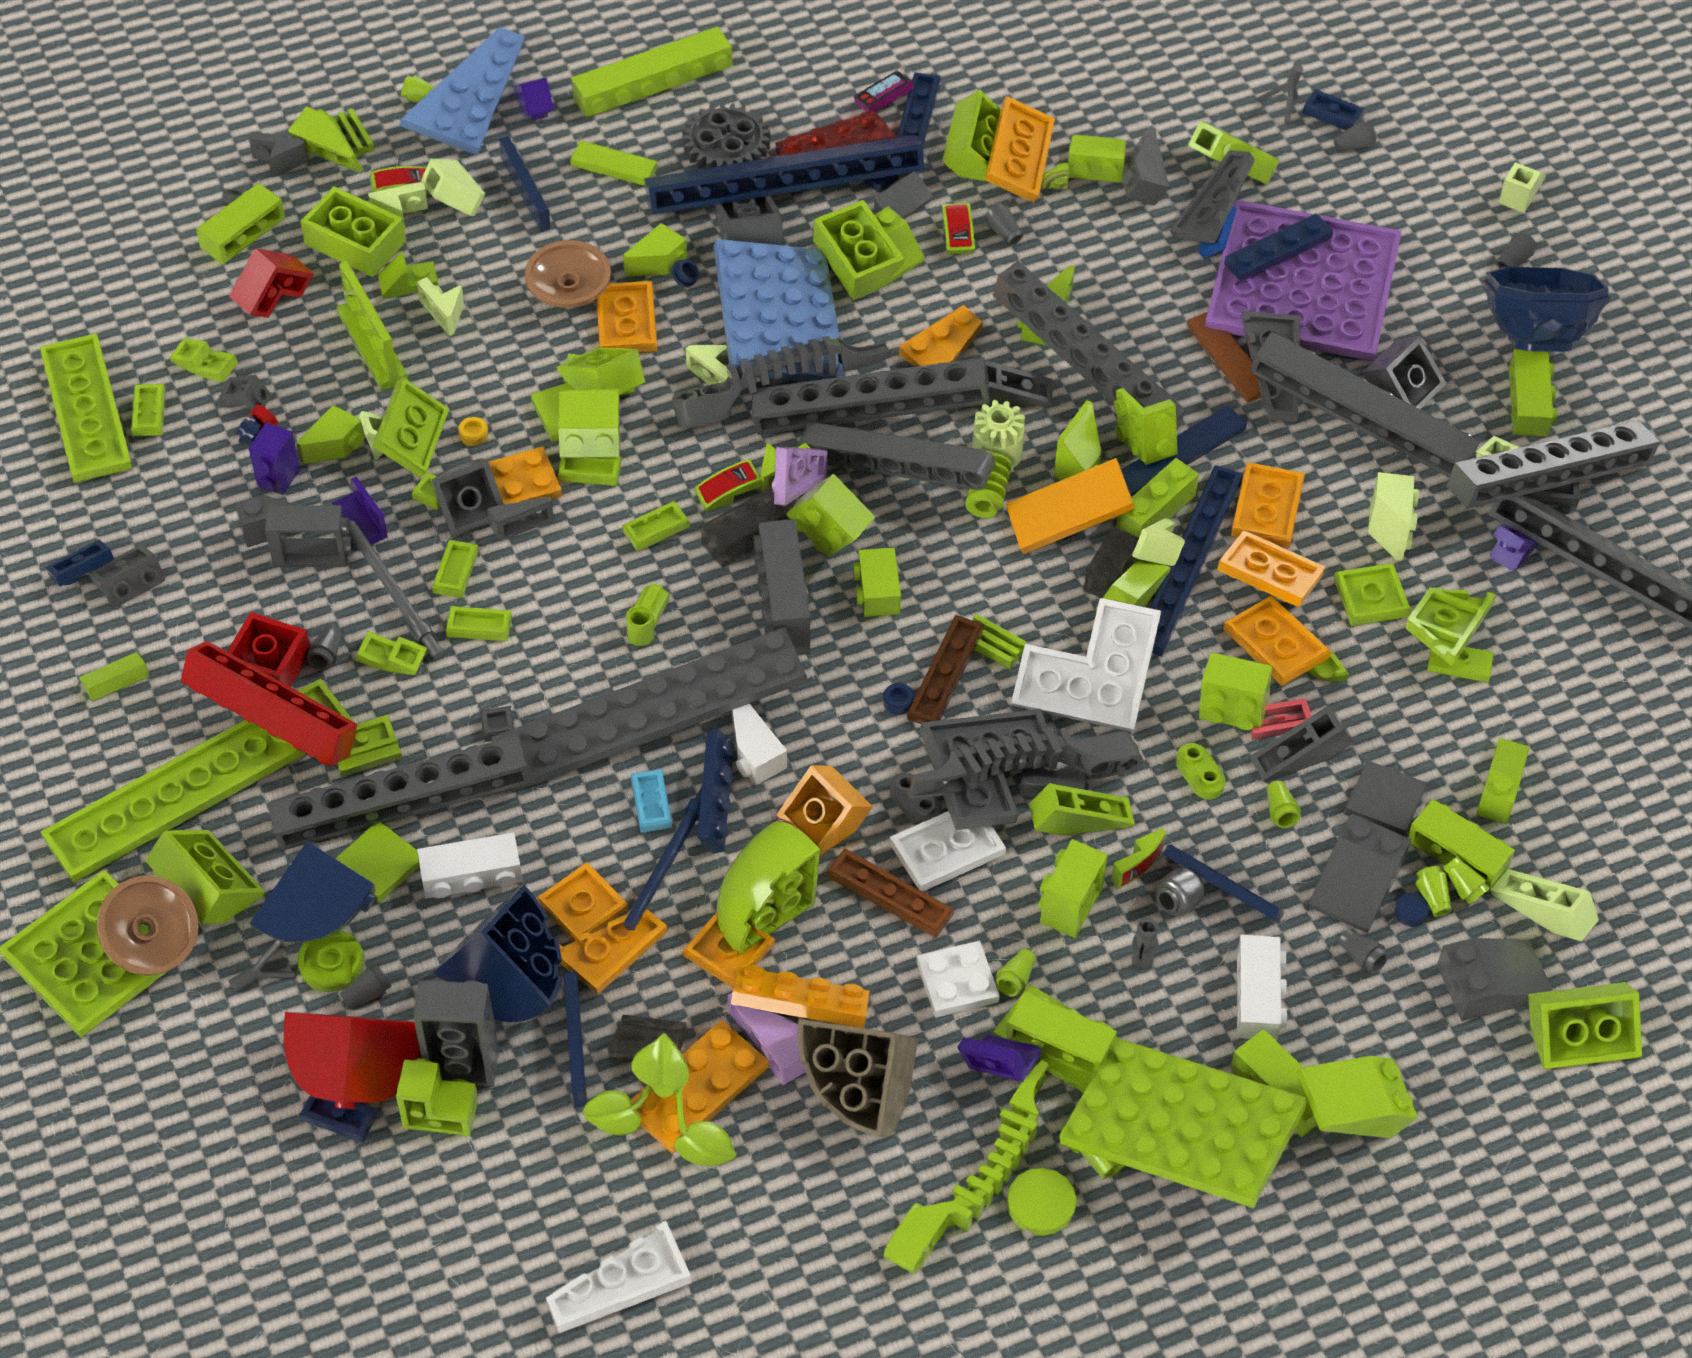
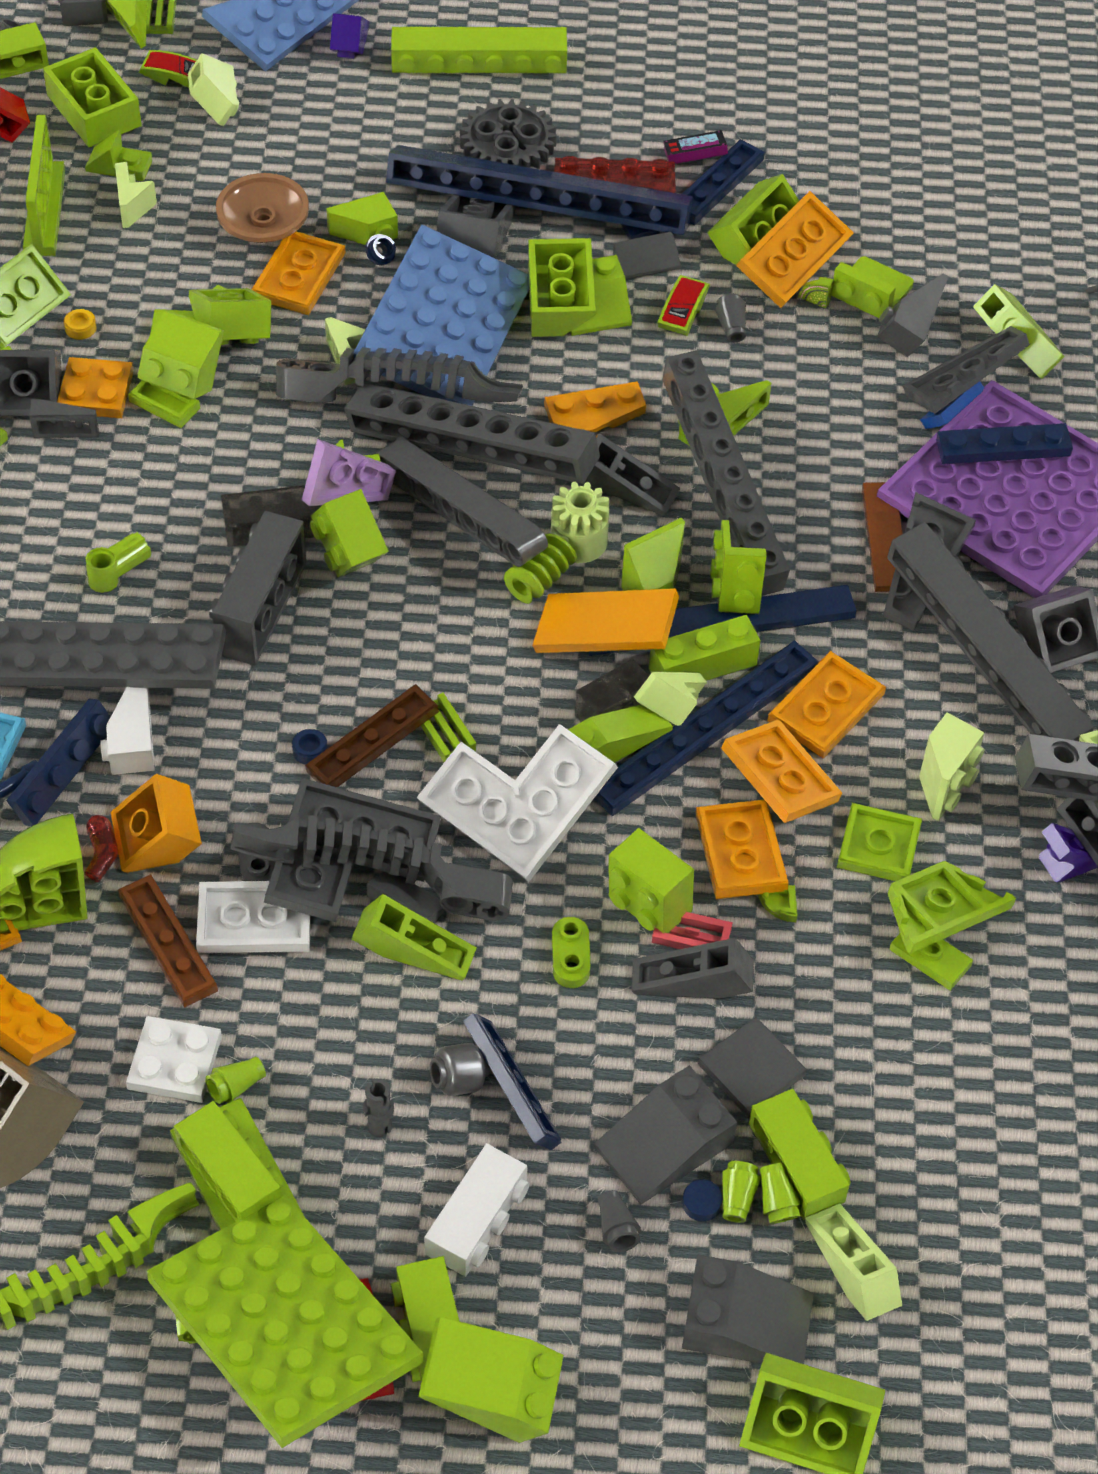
camera: 25 degrees right, 0 degrees up
(401, 199) = (157, 85): yellowish green slope -> none
(524, 184) = (285, 111): dark blue tile -> none
(613, 162) = (385, 121): lime tile -> none
(656, 526) = (186, 480): lime plate -> none
(722, 486) = (273, 467): slope -> none
(879, 582) = (364, 621): lime brick -> none
(999, 1056) = (156, 1160): dark purple panel -> none
(1041, 1201) = (100, 1334): lime tile -> none
(1072, 887) = (343, 1015): lime brick -> none
(1144, 855) = (434, 1021): lime slope -> none
(1282, 805) = (631, 1026): lime cone -> none
(1503, 780) = (894, 1102): lime slope -> none

